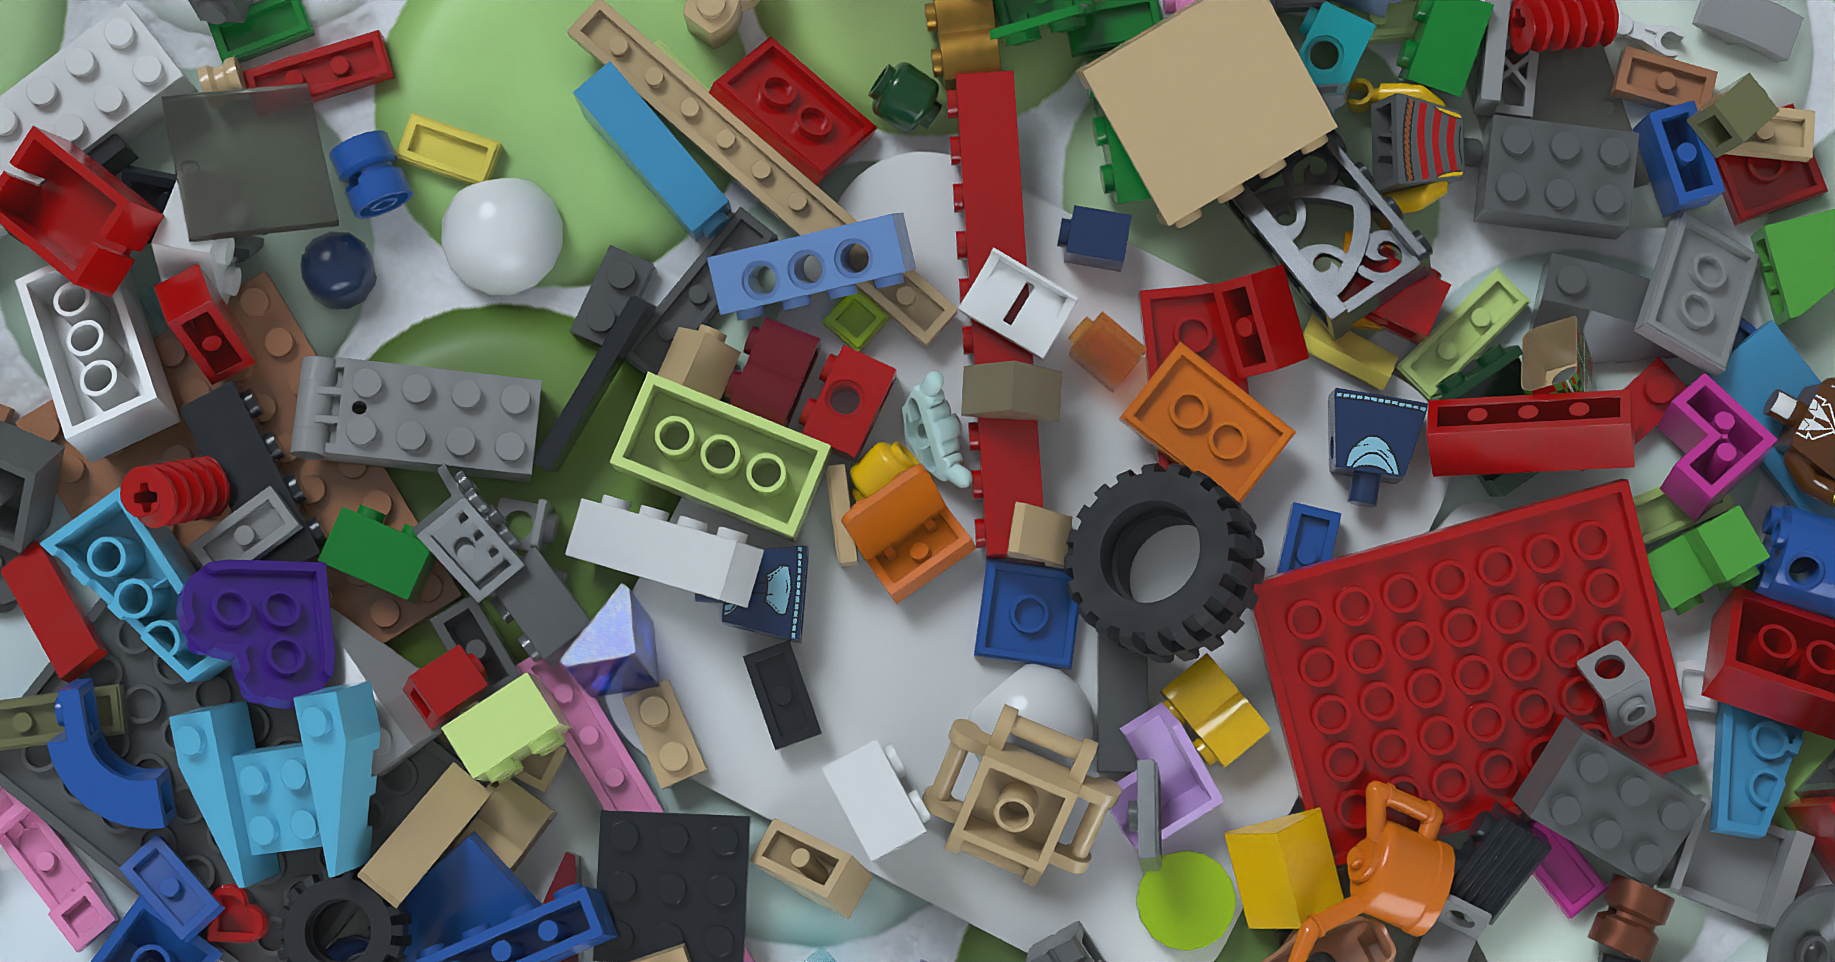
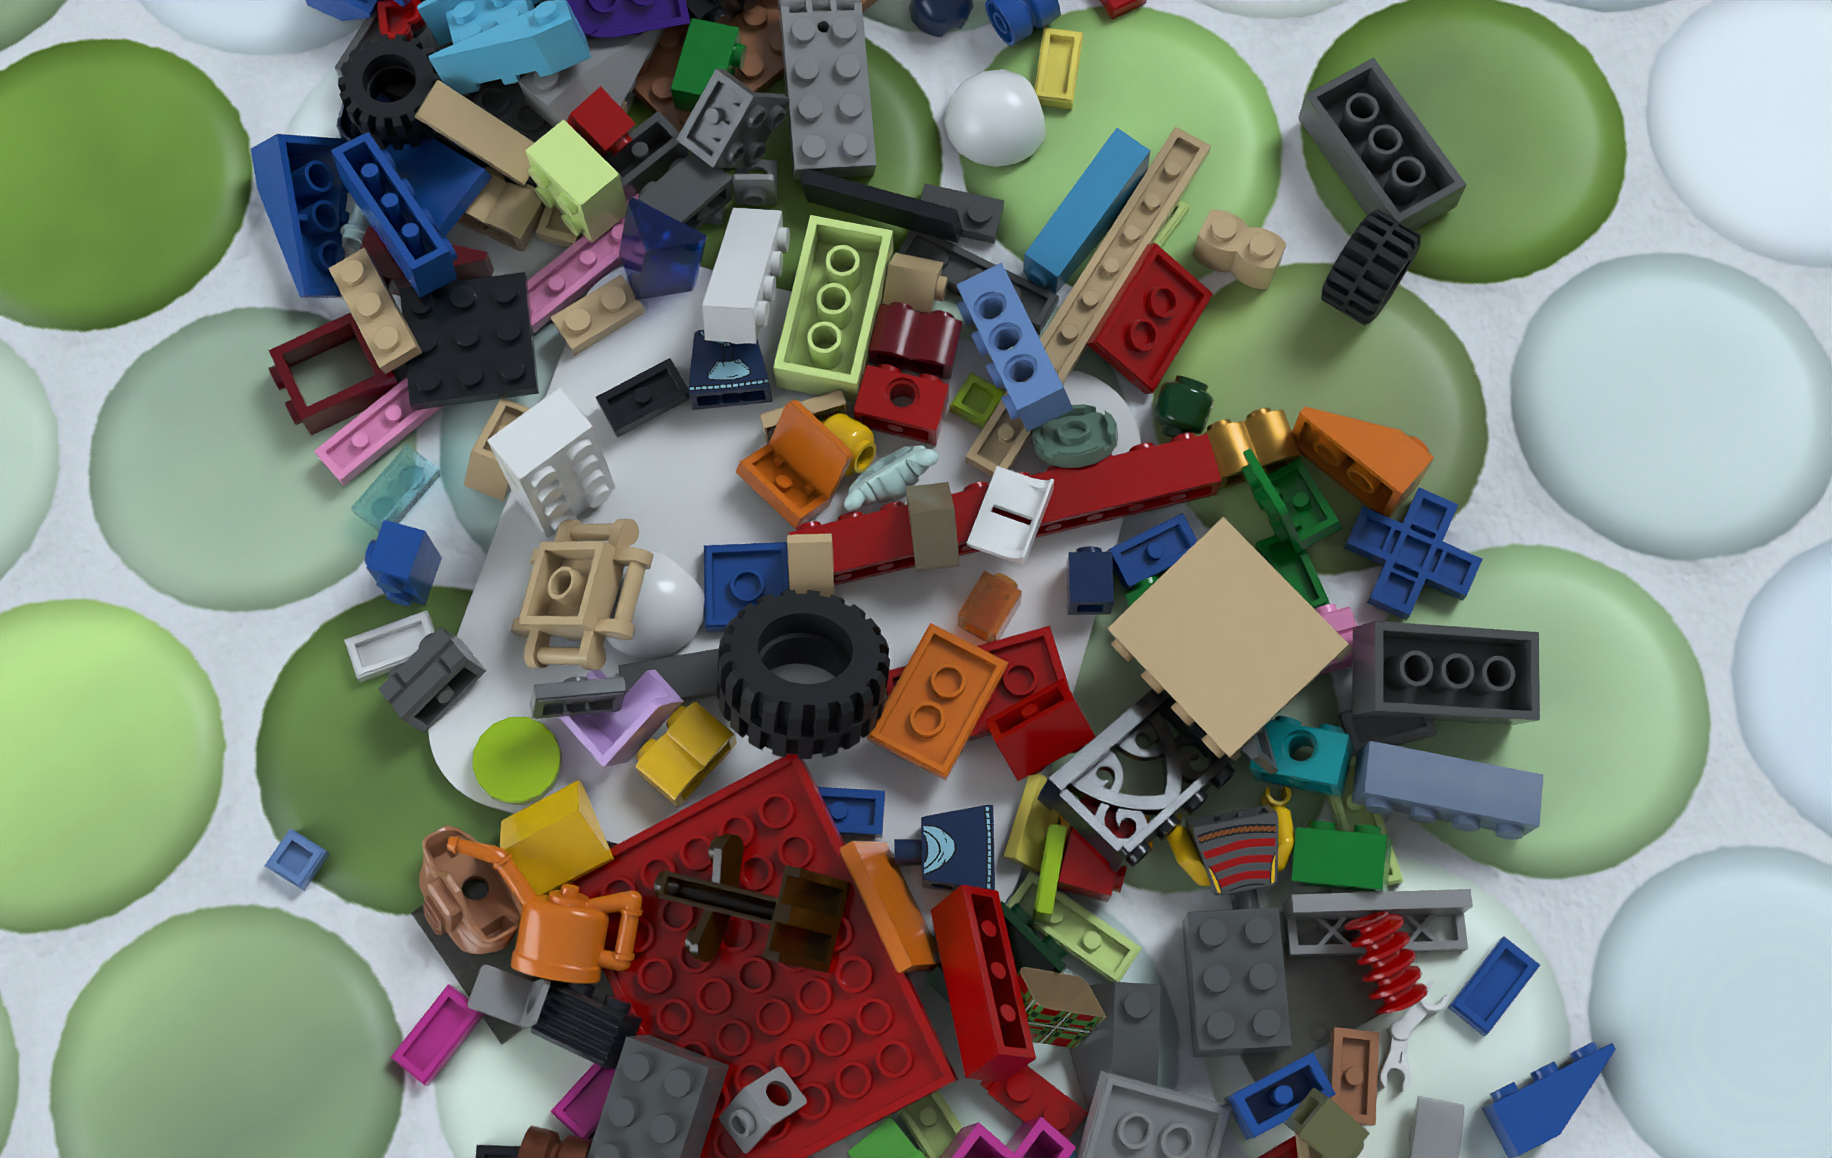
camera: 80 degrees right, 10 degrees down
(935, 216) = (1076, 438): none -> sand green tile
(1066, 163) = (1152, 551): none -> blue plate
(1411, 345) = (1049, 873): none -> lime tile
(1429, 515) = (891, 906): none -> orange tile
(1444, 608) = (801, 919): none -> dark brown piece

